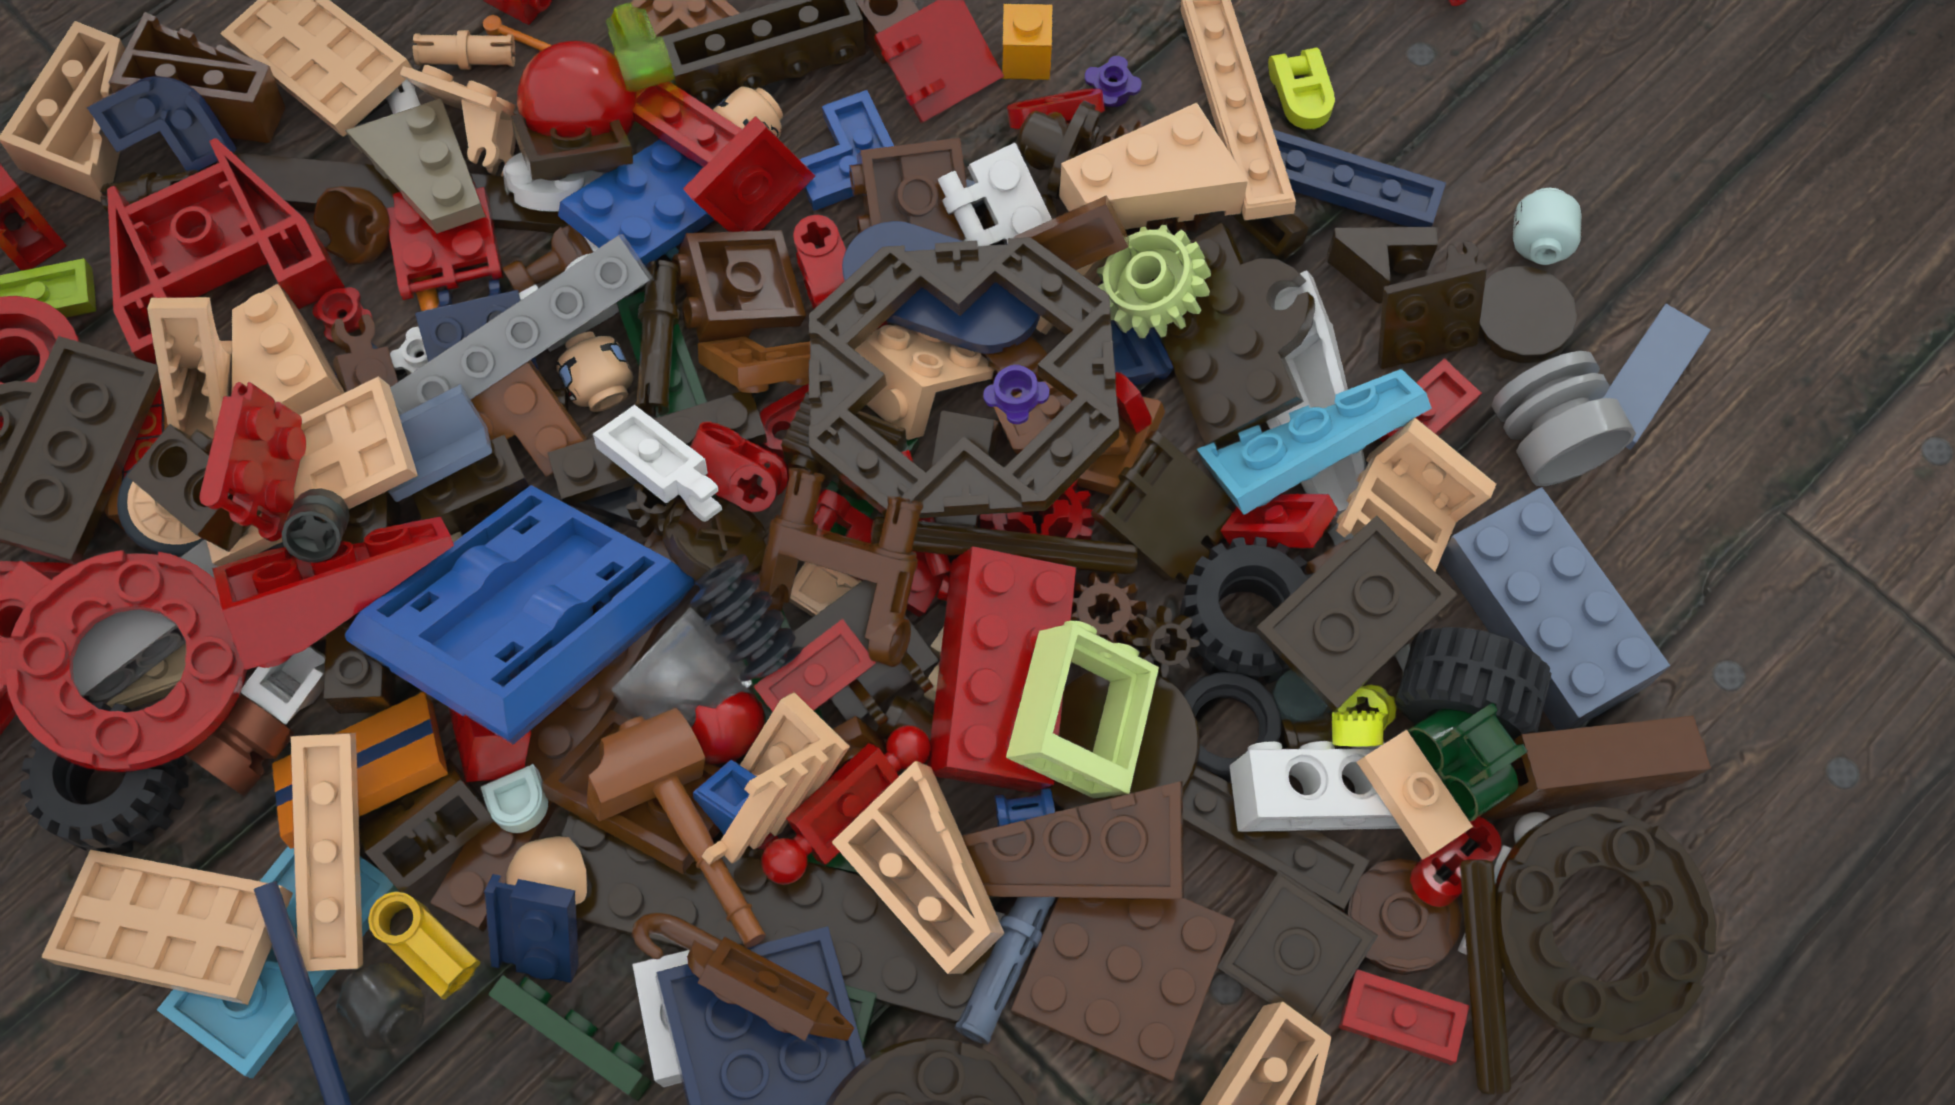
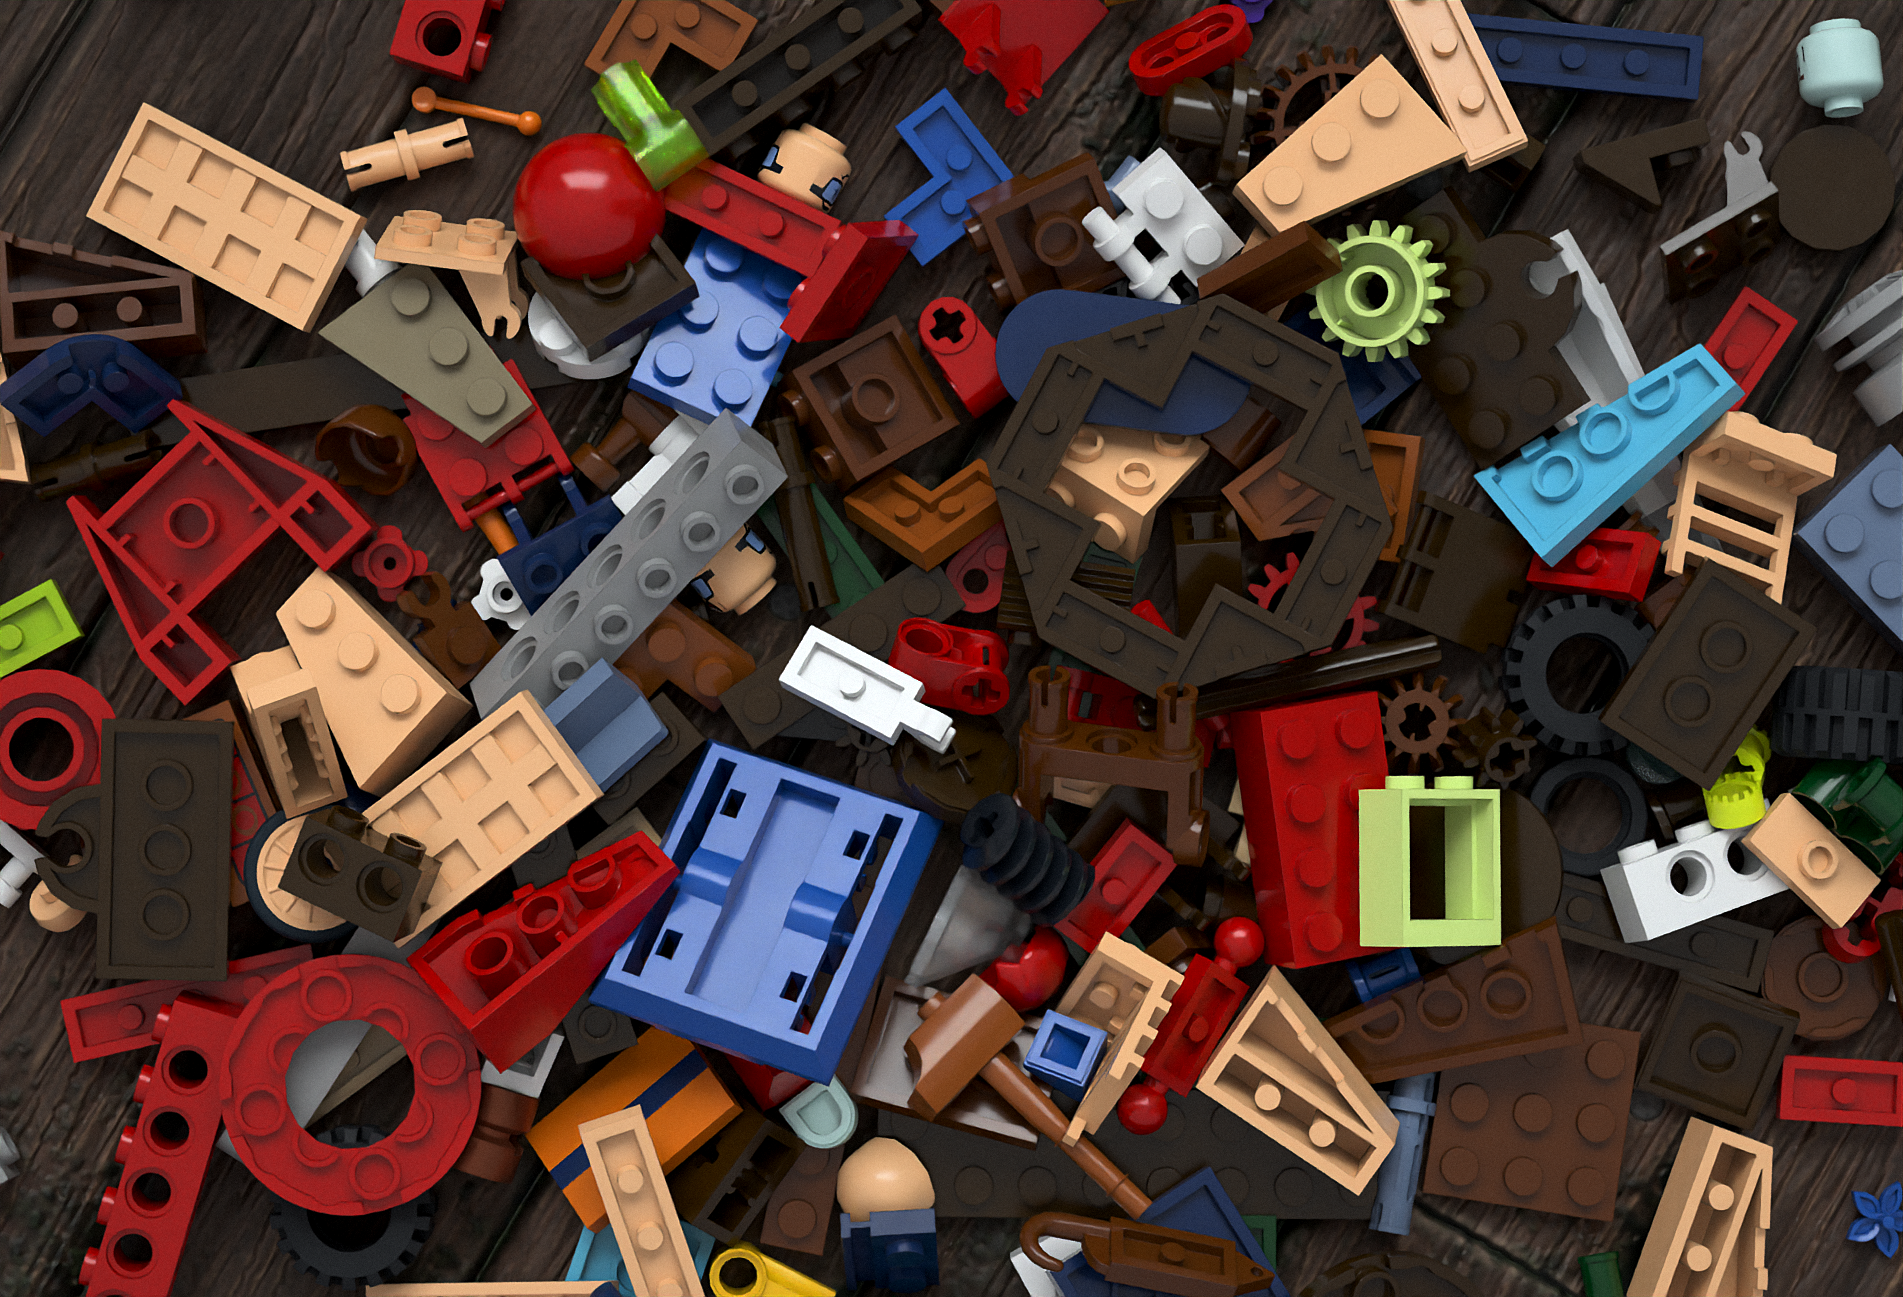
camera: 15 degrees left, 20 degrees up
(254, 460) = (432, 844): red plate -> none
(309, 536) = (517, 890): pearl dark grey wheel -> none
(1016, 379) = (1259, 503): dark purple plate -> none
(1131, 404) = (1387, 457): red tile -> none

